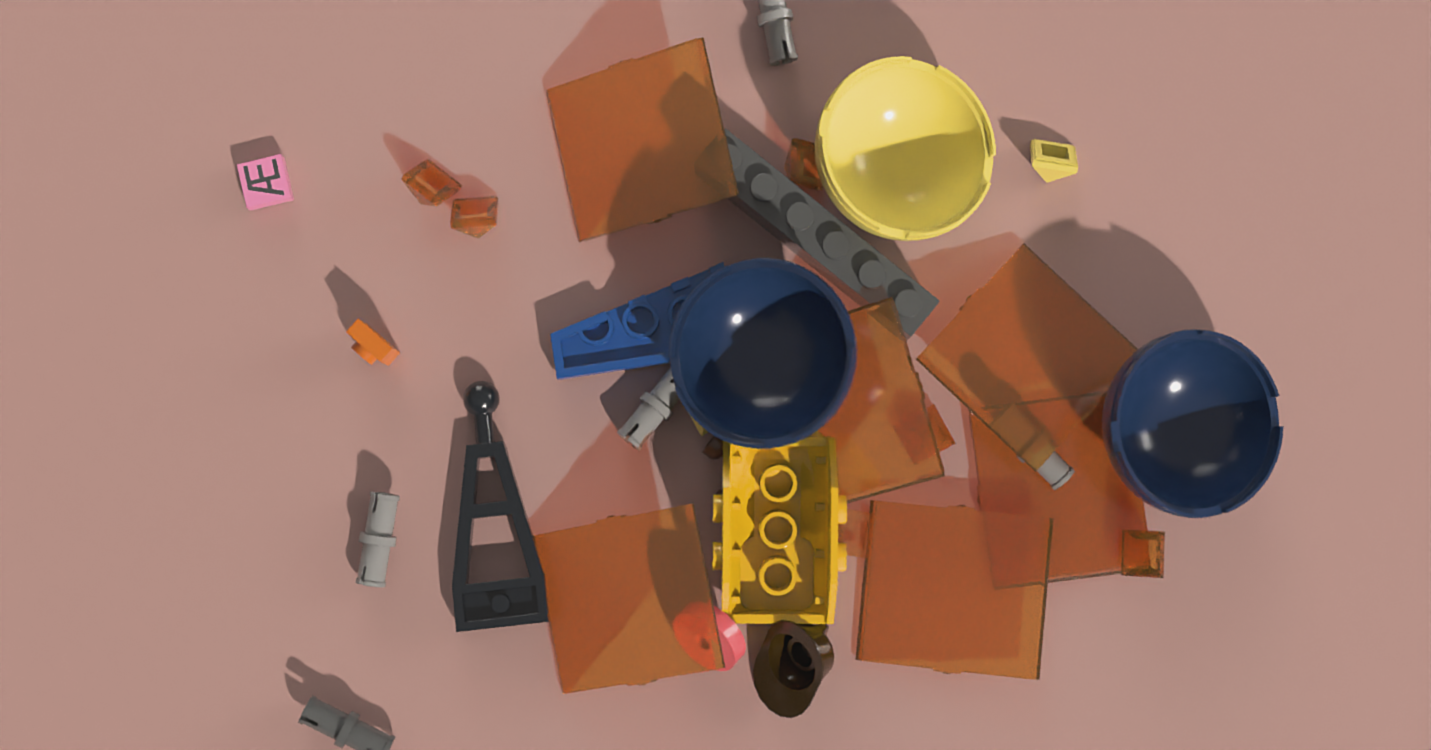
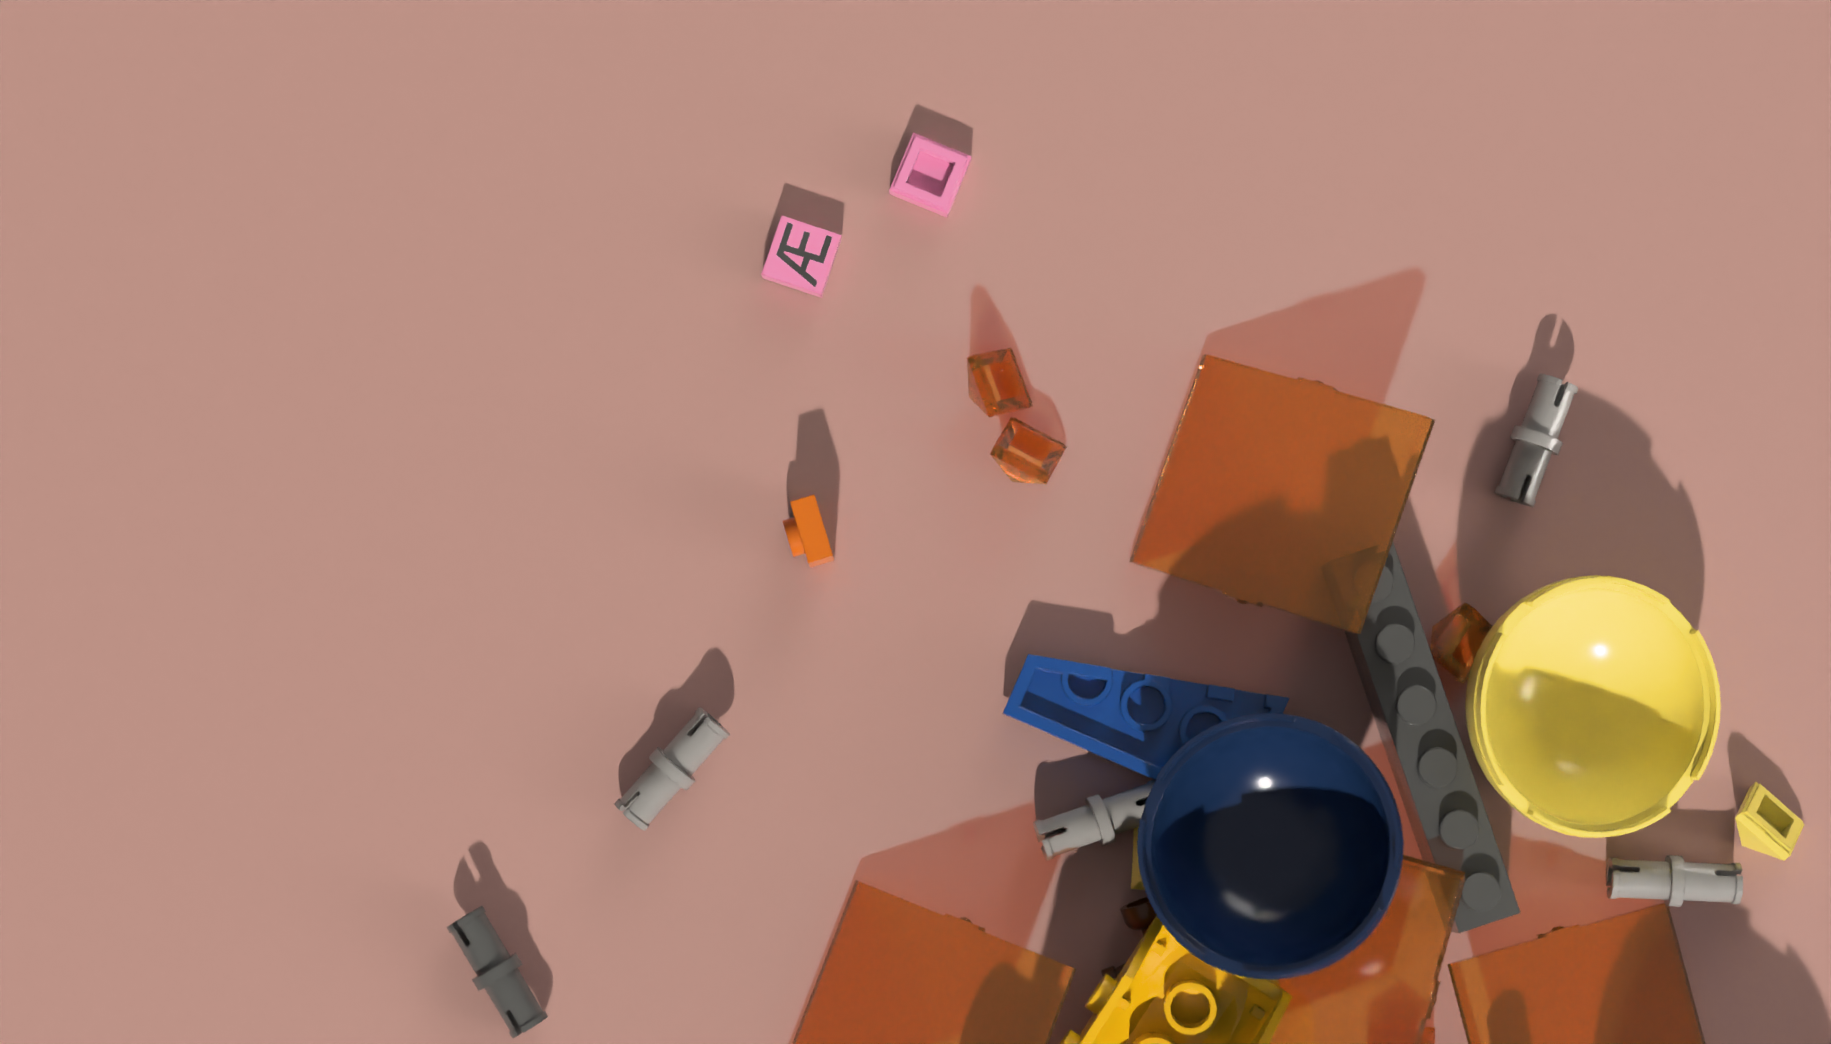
camera: 35 degrees right, 0 degrees up
(313, 85) = (930, 175): none -> bright pink tile
(501, 601) = (769, 934): black plate -> none
(1019, 227) = (1674, 880): none -> light grey pin

